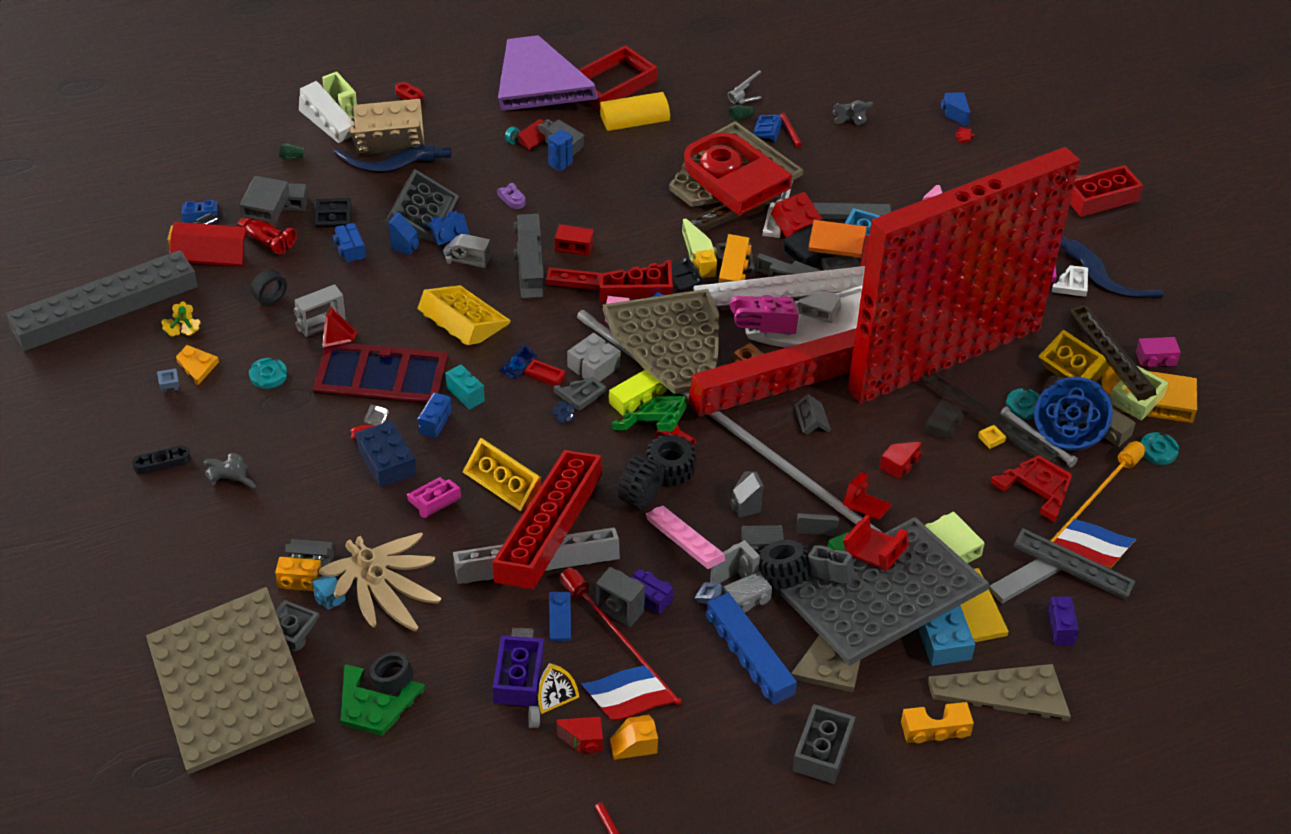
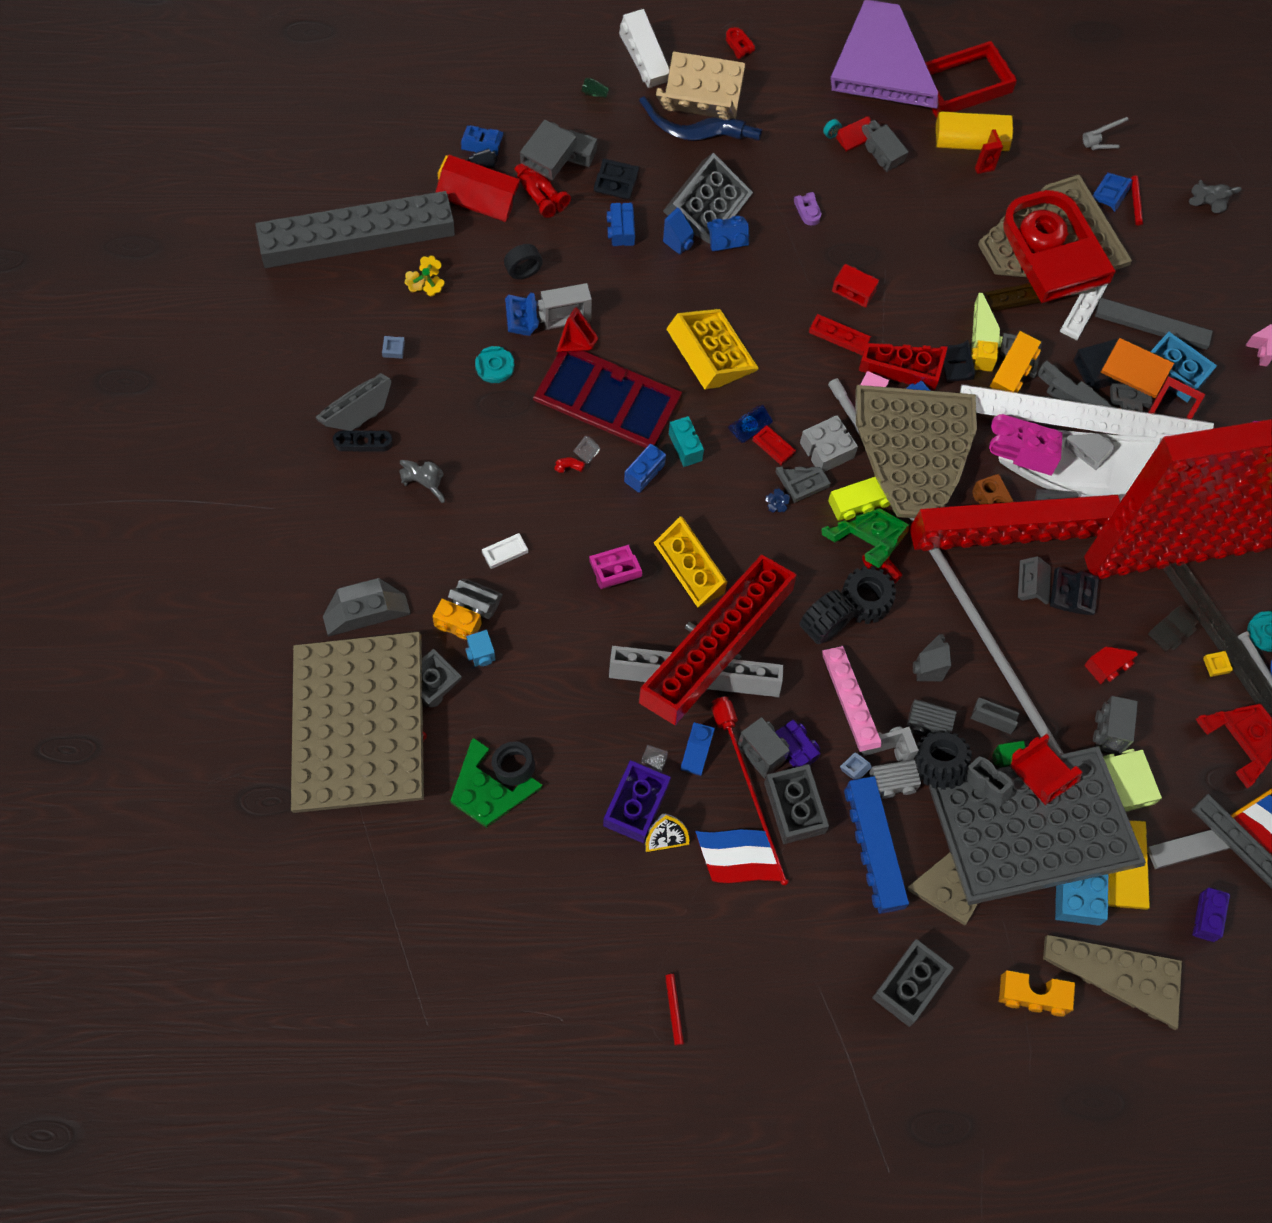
camera: 15 degrees right, 20 degrees up
(150, 430) = (357, 405): none -> dark grey wedge
(196, 362) = (428, 332): light orange wing -> none
(204, 588) = (364, 606): none -> dark grey wedge
(281, 328) = (521, 314): none -> blue bracket
(325, 512) = (505, 551): none -> white tile
(340, 92) = (663, 21): yellowish green panel -> none
(370, 571) = (526, 638): tan plant -> none
(386, 453) = (582, 500): dark blue brick -> none
(468, 250) = (740, 269): light grey piece -> none
(529, 255) = (799, 302): dark grey wedge -> none
(534, 717) = (636, 857): light grey tile -> none
(560, 150) = (876, 165): blue brick -> none
(582, 733) = (678, 892): red slope -> none
(635, 738) = (728, 909): light orange slope -> none
(654, 121) = (989, 154): none -> red panel
(666, 634) = (796, 804): none -> dark grey brick
(739, 112) = (1089, 162): clear green cone -> none
(795, 214) = (1103, 321): red brick -> none
(849, 416) = (1074, 591): none -> black slope
(859, 501) = (1053, 707): red bracket -> none
(923, 497) = (1115, 725): none -> dark grey piece

